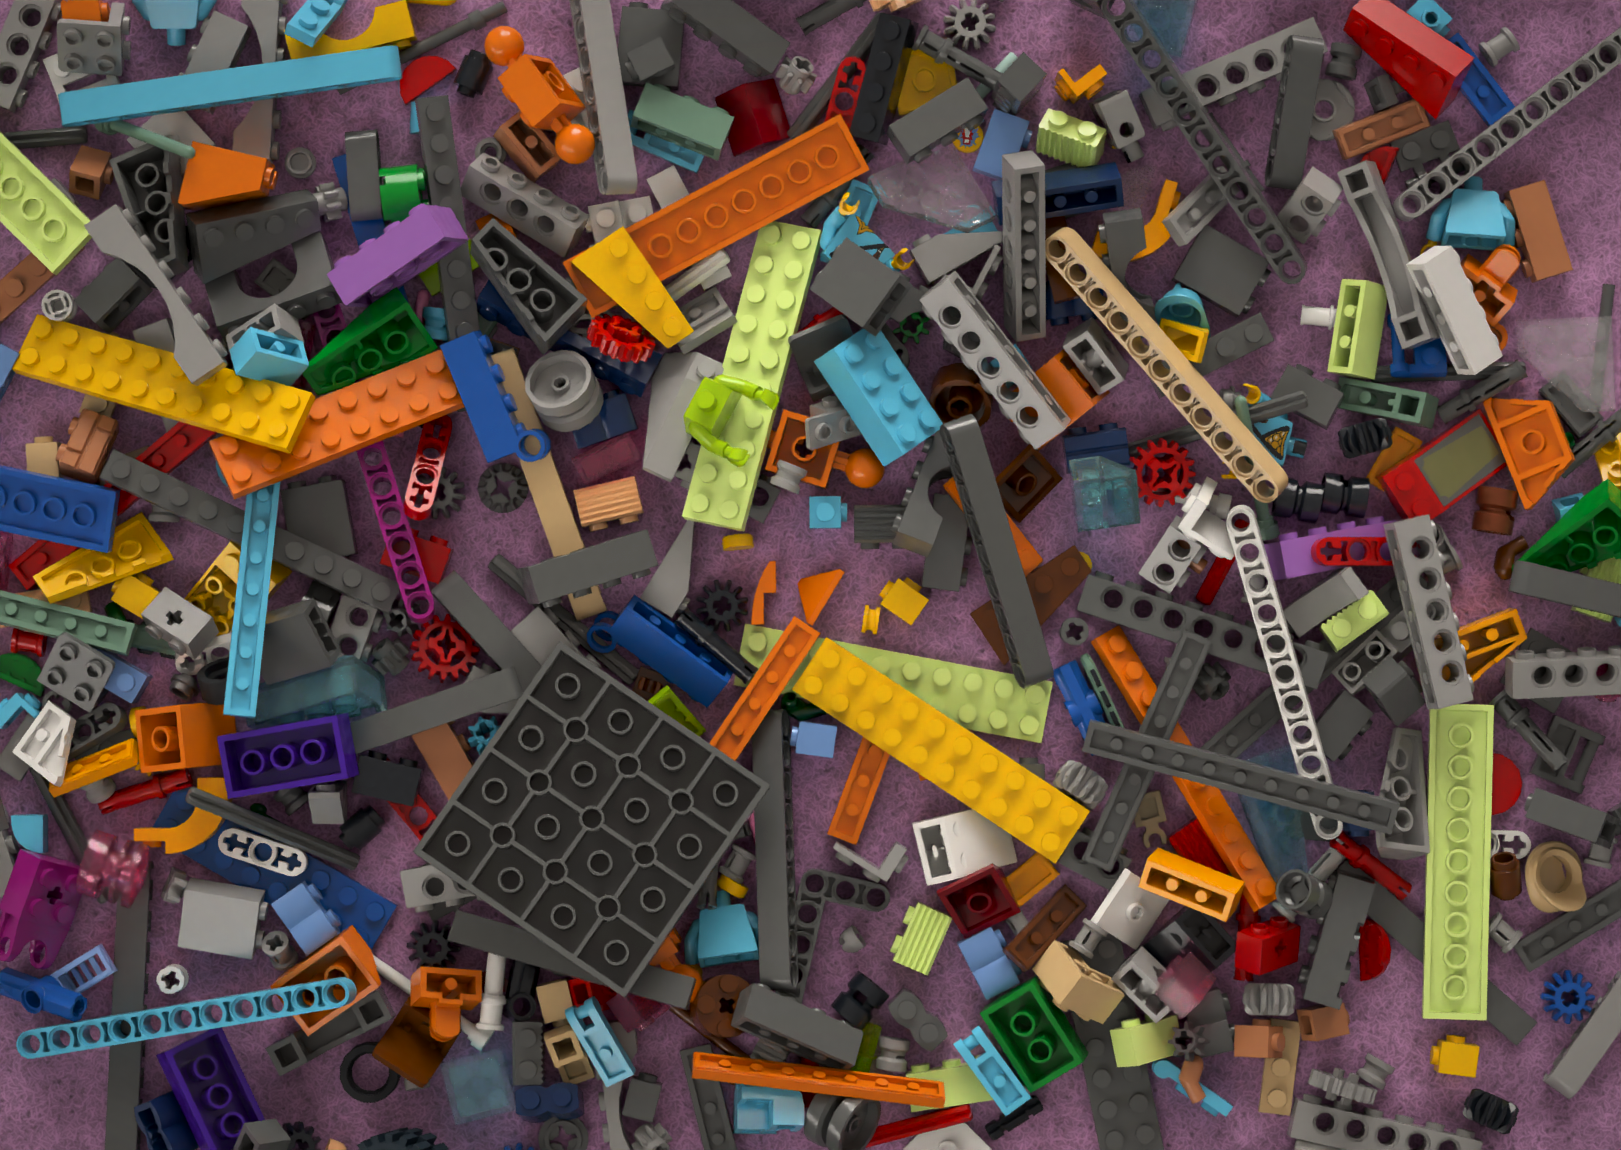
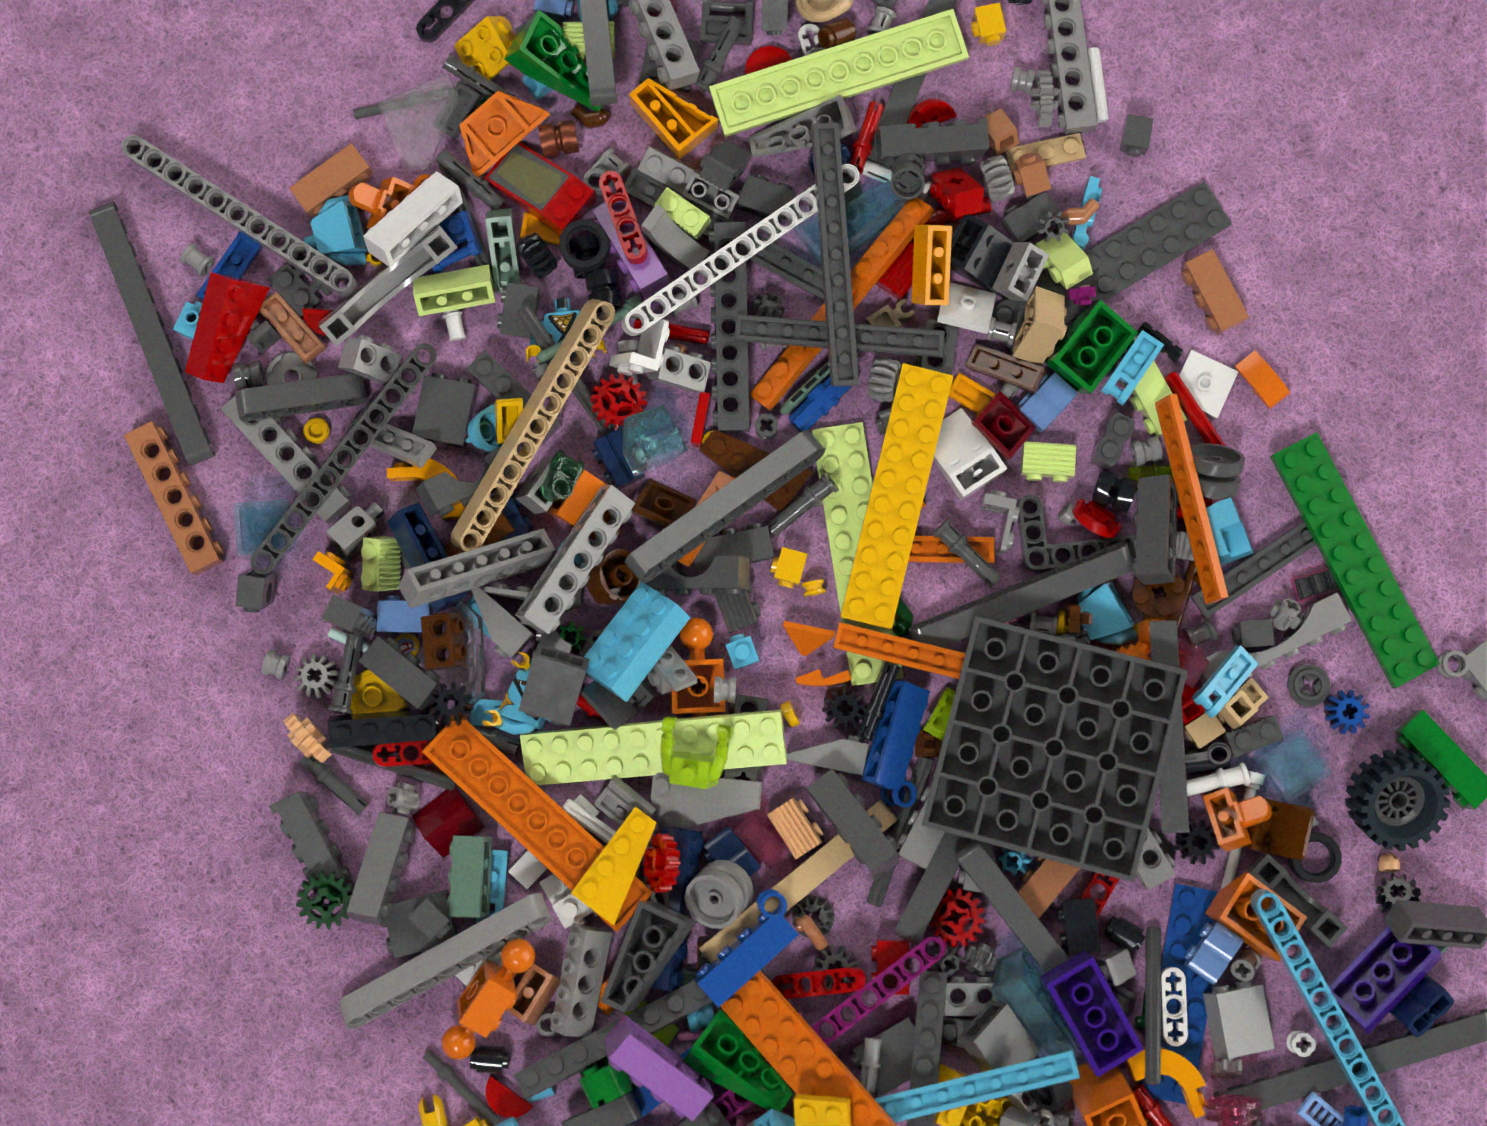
camera: 100 degrees left, 5 degrees down
(319, 492) = (870, 1063): none -> light grey axle
(496, 477) = (807, 925): none -> nougat arm
(540, 1104) = (1289, 711): dark blue brick -> none
(664, 1037) = (1200, 633): none -> dark grey bush
(731, 900) = (1074, 617): none -> reddish brown tile
(814, 739) = (924, 597): medium blue brick -> none
(835, 967) = (1096, 518): none -> red tile
(860, 800) = (958, 544): none -> dark grey pin
(878, 153) = (460, 700): none -> black gear
(957, 172) = (437, 642): none -> reddish brown brick
(973, 652) = (811, 497): none -> dark grey pin
(1096, 1043) = (1081, 295): none -> magenta plate
(1099, 381) = (563, 472): none -> clear green piece
(1109, 559) = (700, 419): none -> red tile
(1184, 984) = (1011, 242): clear pink brick -> none
(1251, 117) = (316, 430): none -> yellow tile
(1371, 512) = (572, 229): none -> black tyre
(1415, 600) = (652, 168): light grey brick -> none

